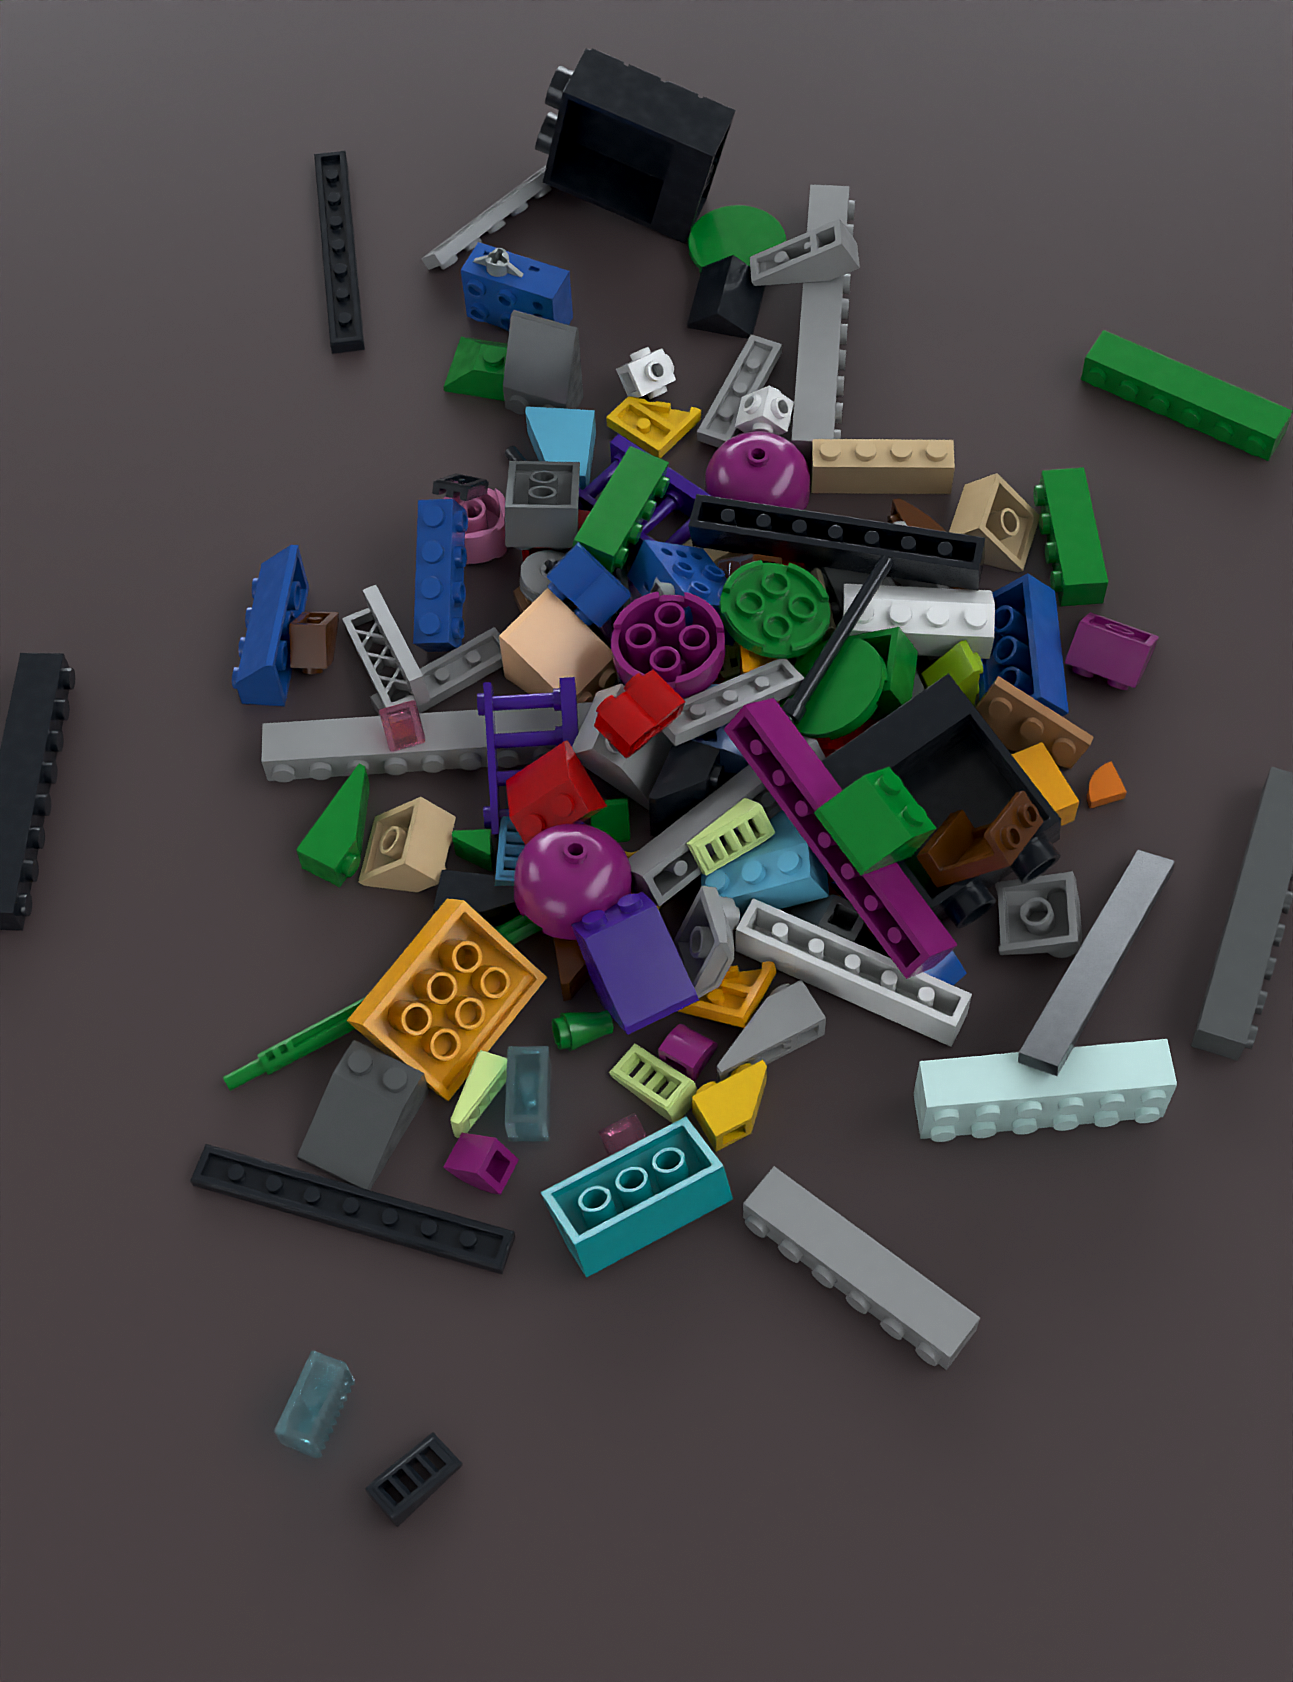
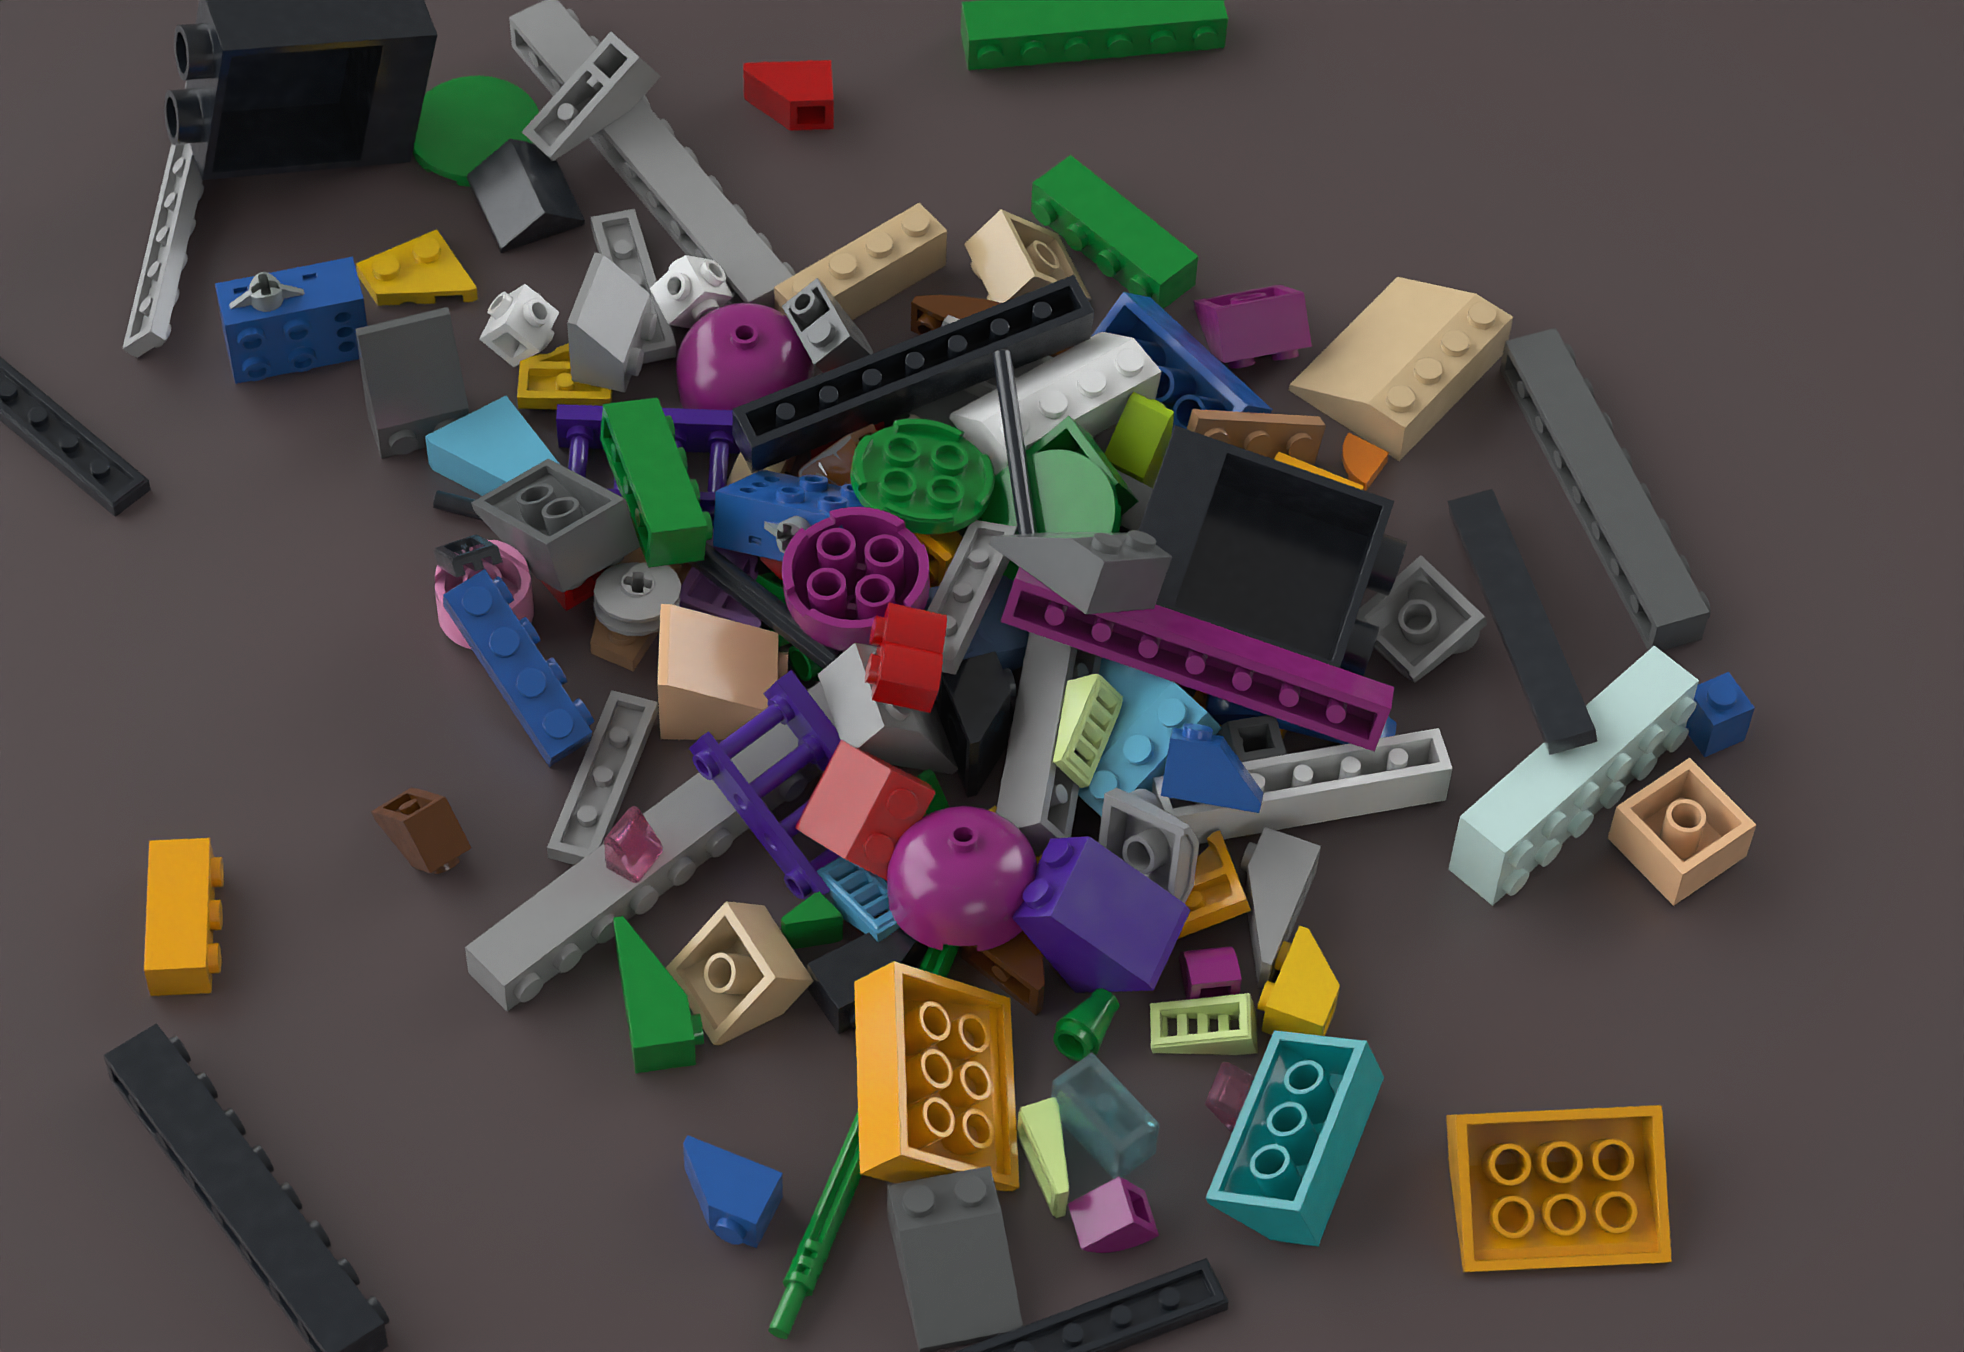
camera: 45 degrees left, 5 degrees down
(142, 602) = (182, 917): none -> light orange brick
(265, 651) = (368, 845): blue slope -> none
(276, 980) = (732, 1191): none -> blue slope
(394, 646) = (530, 773): light grey fence -> none
(477, 369) = (319, 427): green slope -> none
(587, 586) = (702, 574): blue brick -> none
(624, 310) = (416, 273): none -> yellow wing
(685, 401) = (609, 327): none -> light grey slope
(778, 917) = (1208, 771): none -> blue slope
(779, 1358) = (1559, 1188): none -> light orange slope
(805, 730) = (1092, 568): none -> dark grey slope
(815, 482) = (825, 328): none -> dark grey slope
(860, 1269) = (1553, 1054): light grey brick -> none
(876, 821) = (1236, 610): green slope -> none
(950, 329) = (792, 92): none -> red slope
(962, 852) = (1342, 577): reddish brown panel -> none
(1086, 1180) = (1681, 831): none -> light nougat brick
(1190, 1118) = (1720, 715): none -> blue brick
(1195, 740) = (1405, 362): none -> tan slope

